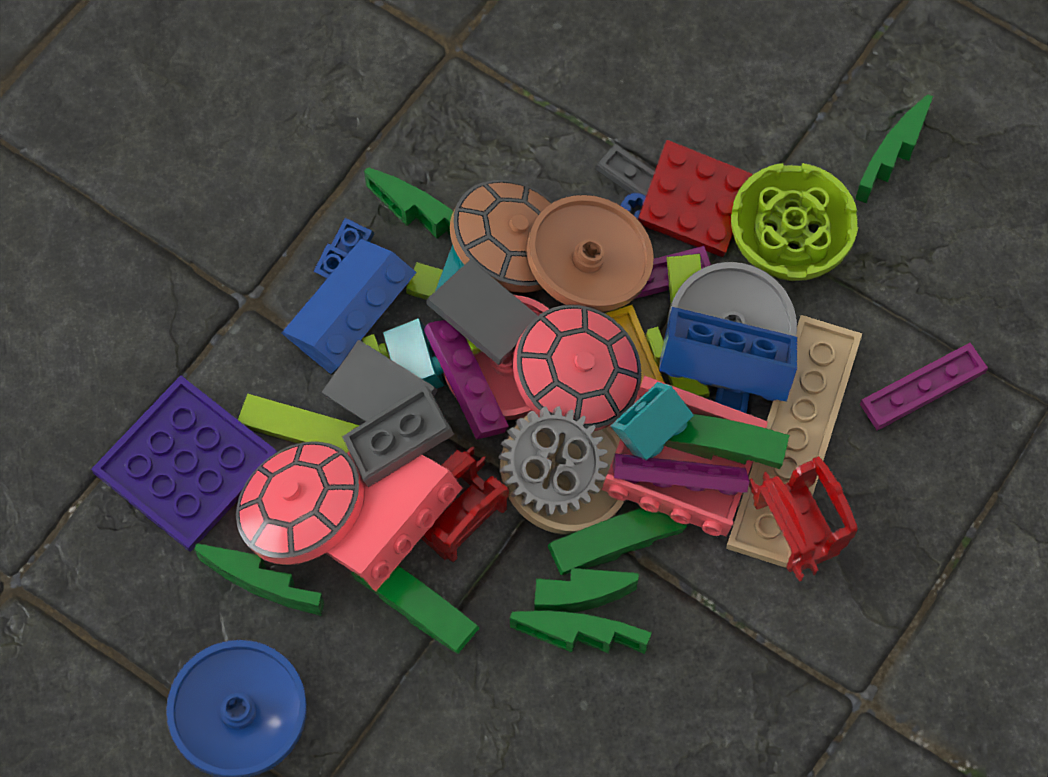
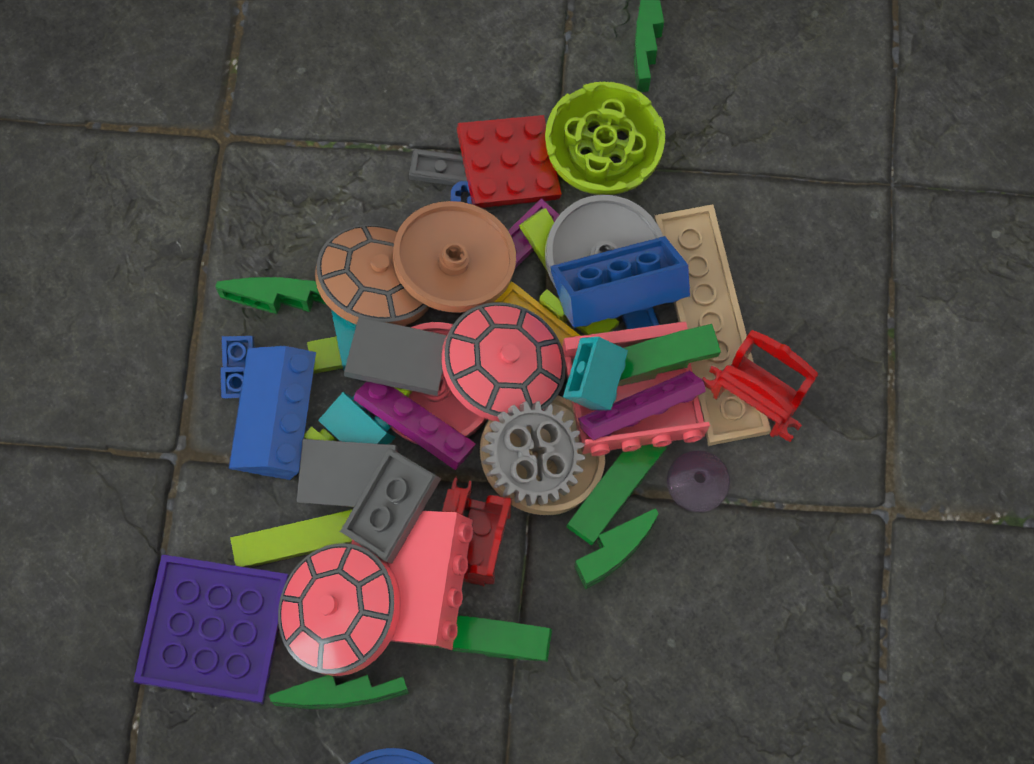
camera: 30 degrees left, 5 degrees up
(567, 628) = (623, 588): green slope -> none
(692, 589) = (694, 495): none -> clear purple dish
(923, 386) = (786, 222): magenta plate -> none

